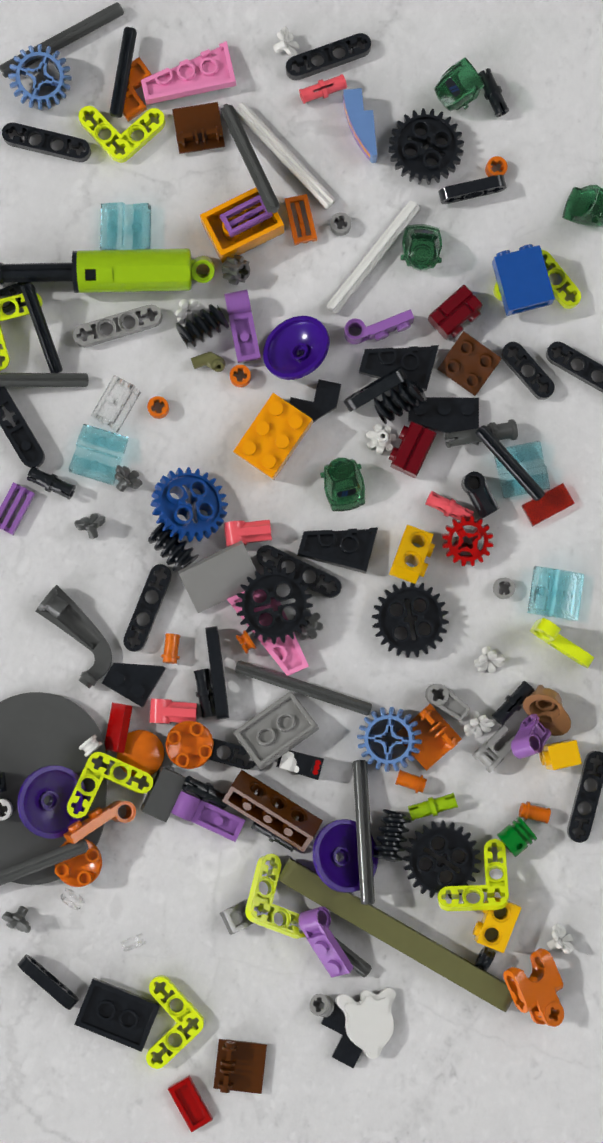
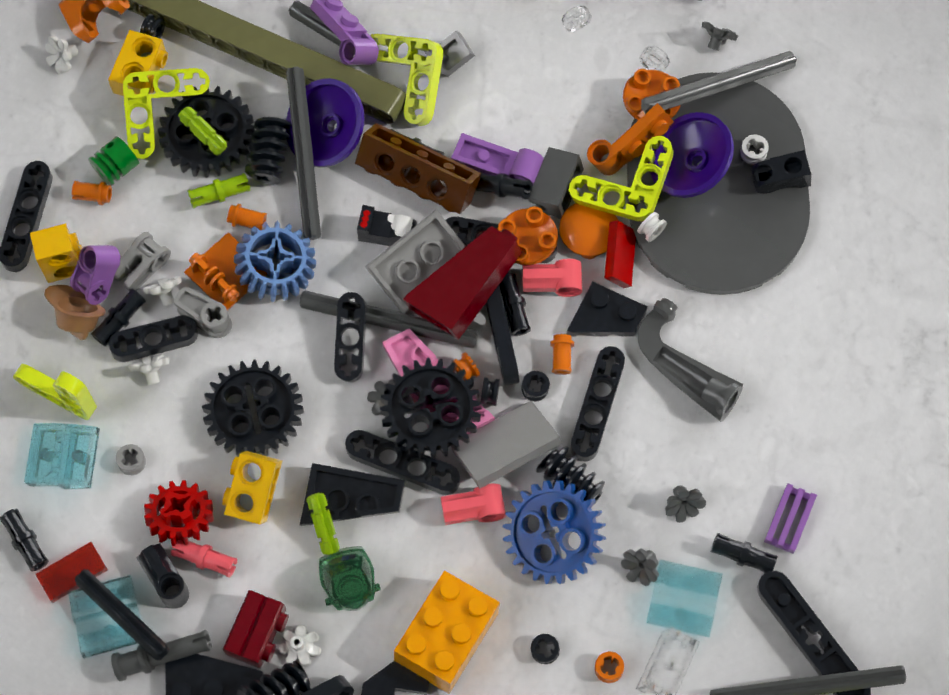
camera: 175 degrees right, 15 degrees down
(199, 430) = (549, 639): none -> black bush
(200, 629) = (530, 394): none -> black bush
(228, 621) = (490, 391): none -> black bush
(241, 703) = (465, 282): none -> dark red slope
(328, 654) = (359, 314): none -> black beam
(360, 524) = (323, 523): none -> lime axle
(444, 852) = (202, 130): none -> lime axle
(502, 674) = (142, 331): none -> black beam
(583, 530) = (24, 540): none -> black pin

